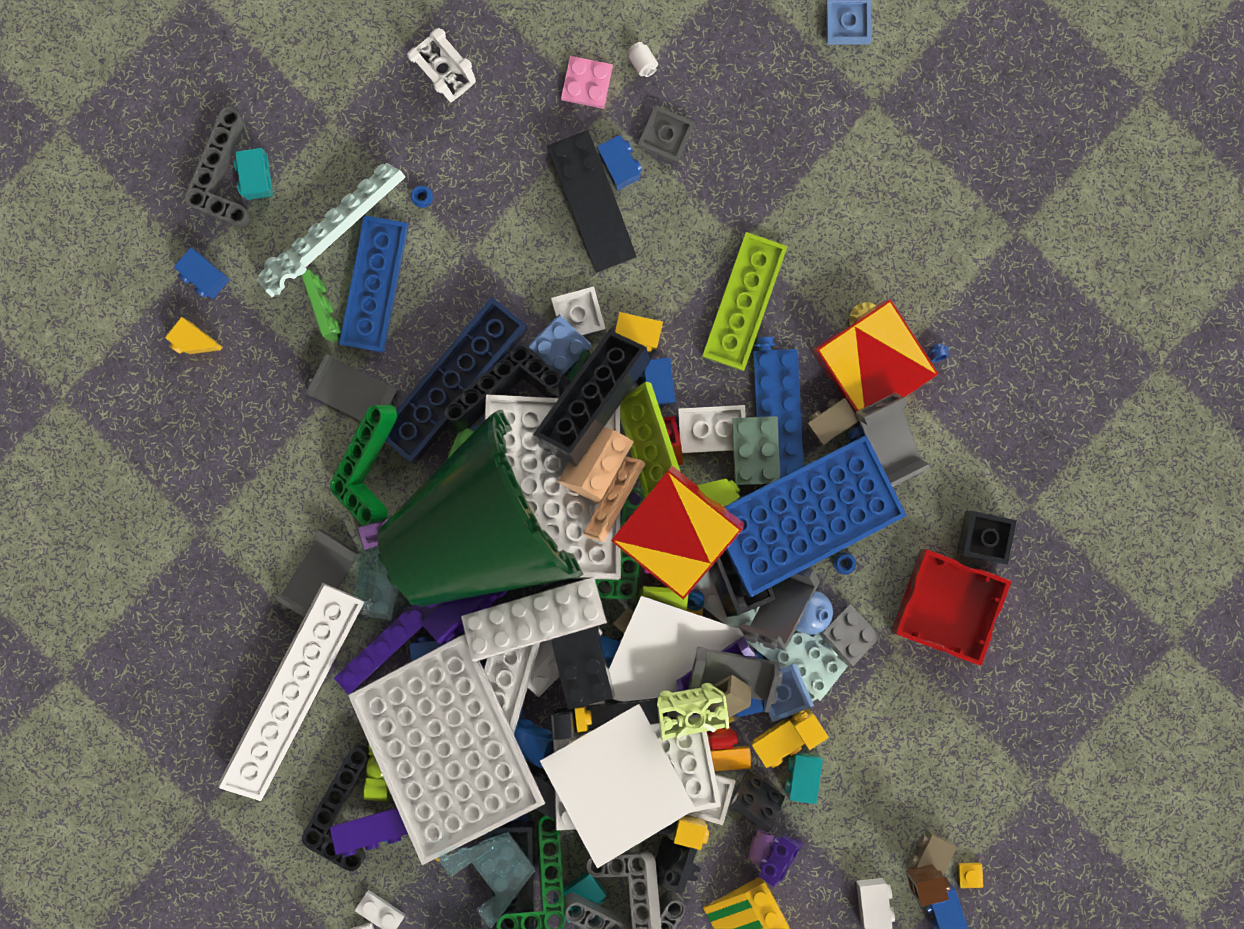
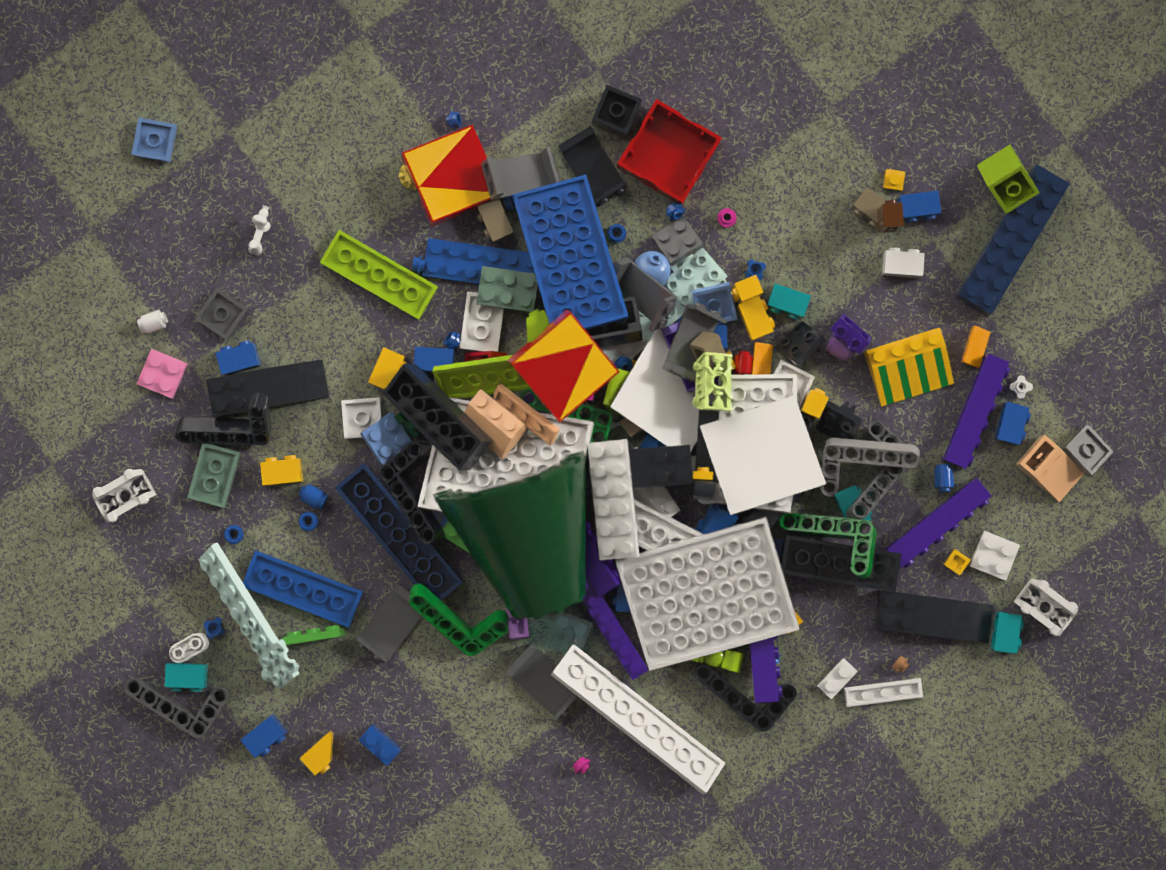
camera: 85 degrees left, 0 degrees up
(213, 404) = (380, 744): none -> blue brick
(229, 636) = (581, 765): none -> dark pink plate
(285, 171) = (189, 647): none -> white brick
(315, 189) = (209, 628): none -> blue plate
(451, 269) = (312, 526): none -> blue plate
(479, 276) = (313, 496): none -> blue brick
(483, 161) = (214, 475): none -> sand green plate
(500, 235) = (281, 471): none -> yellow brick
(501, 866) = (812, 564): clear light blue wing -> none
(540, 192) = (228, 430): none -> black beam
(685, 398) = (452, 340): none -> blue plate
(774, 159) = (262, 225): none -> white piece
(838, 726) = (759, 266): none -> blue plate
(881, 685) = (722, 222): none -> dark pink plate
(883, 626) = (675, 211): none -> blue plate
(926, 514) = (588, 158): none -> black panel

